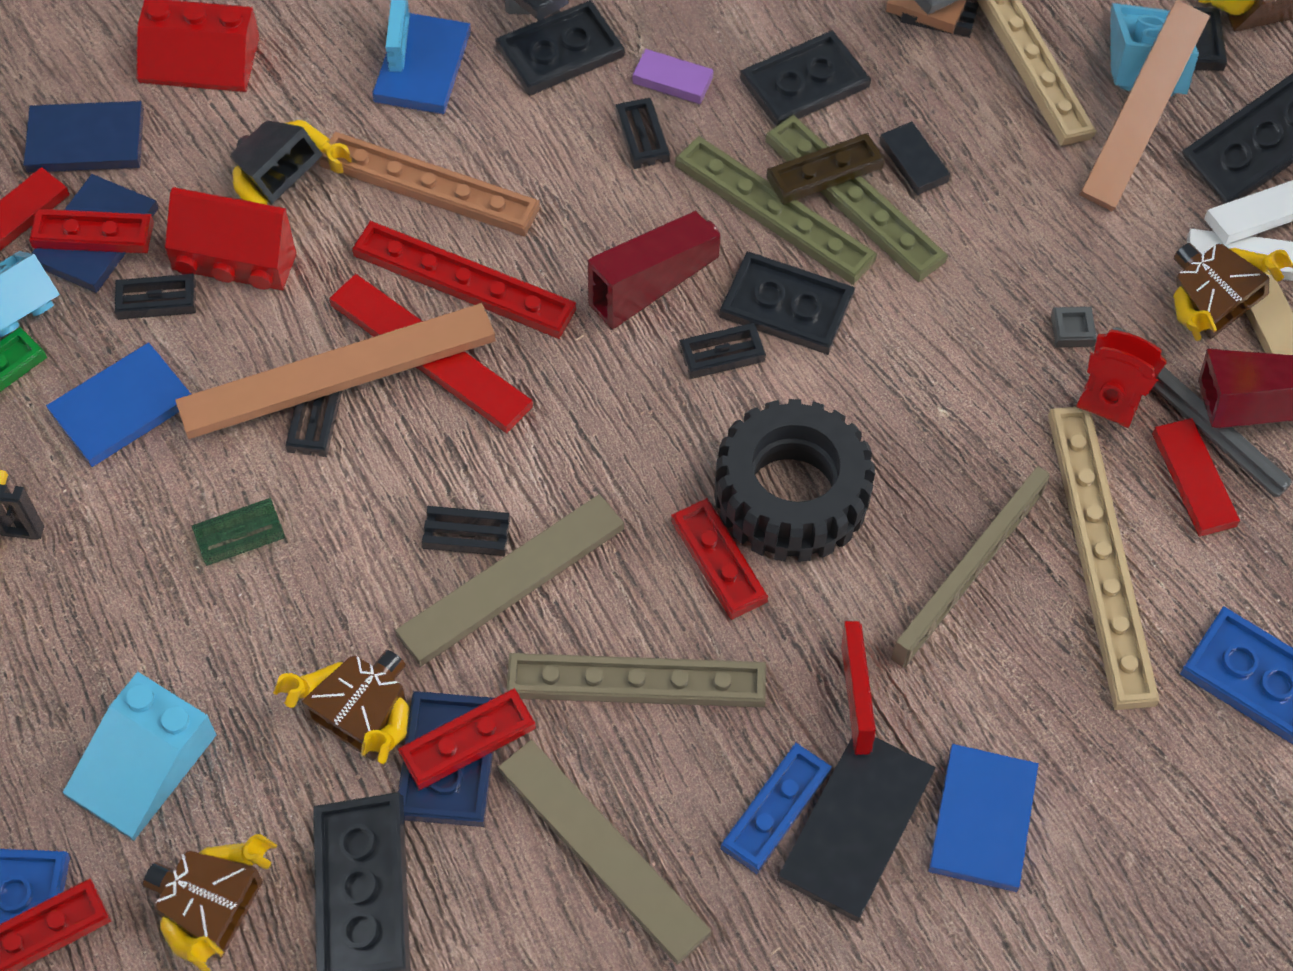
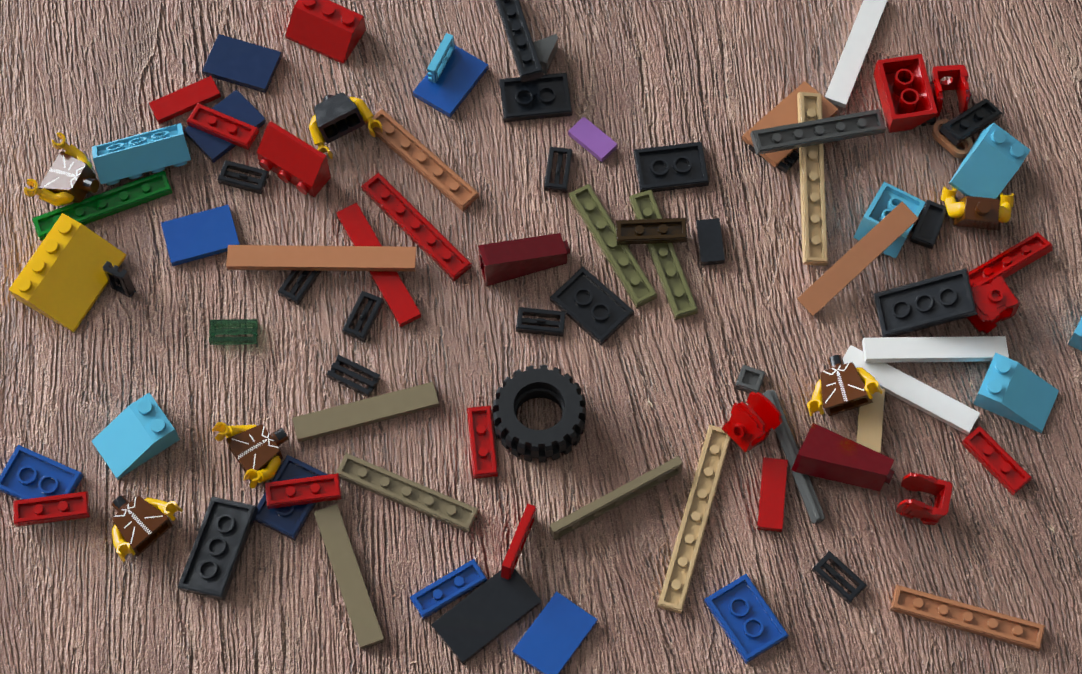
camera: 25 degrees right, 5 degrees up
(439, 464) = (355, 333): none -> black tile

